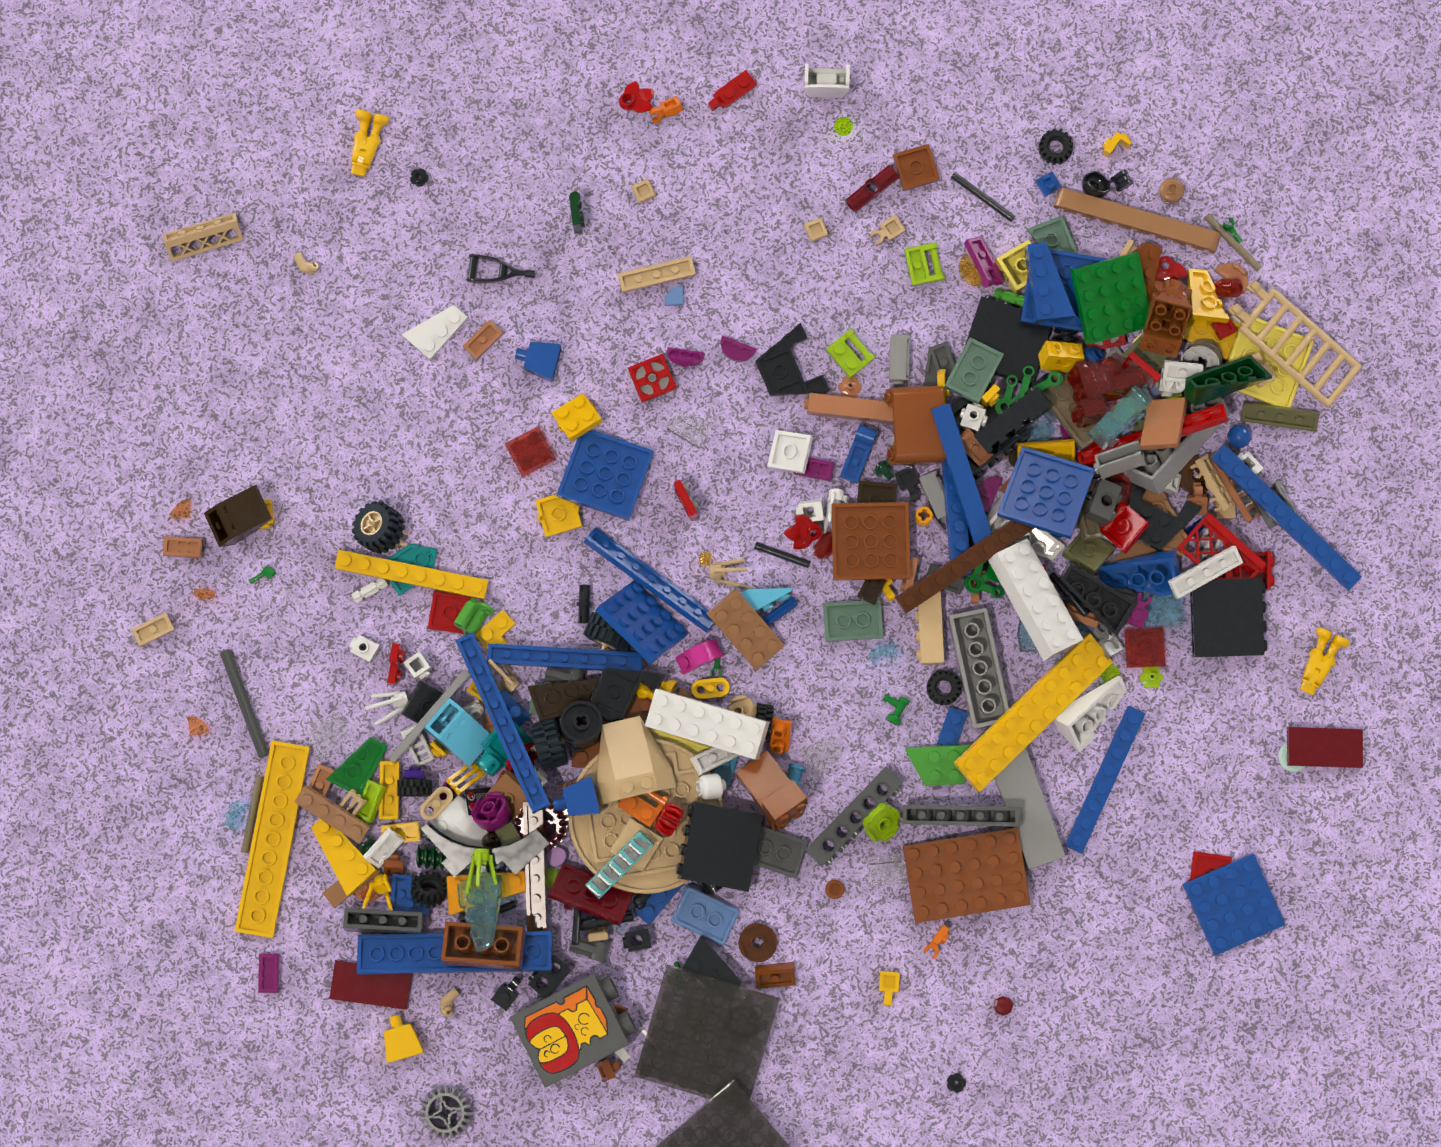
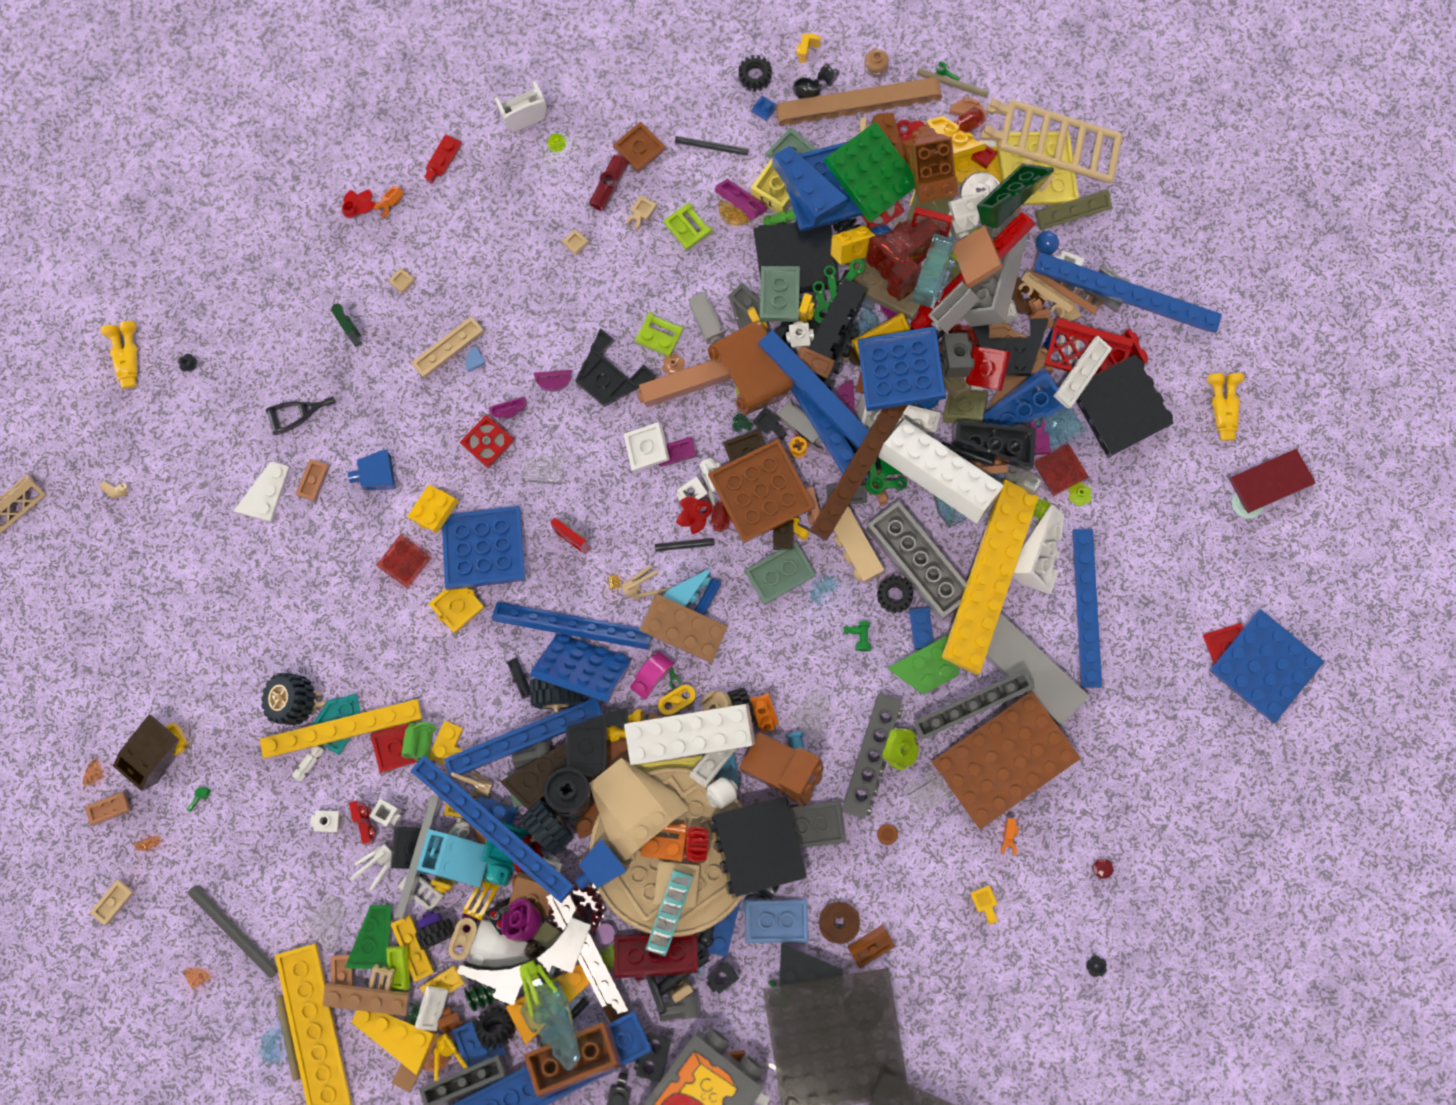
camera: 20 degrees left, 5 degrees down
(858, 454) = (710, 419): blue plate -> none

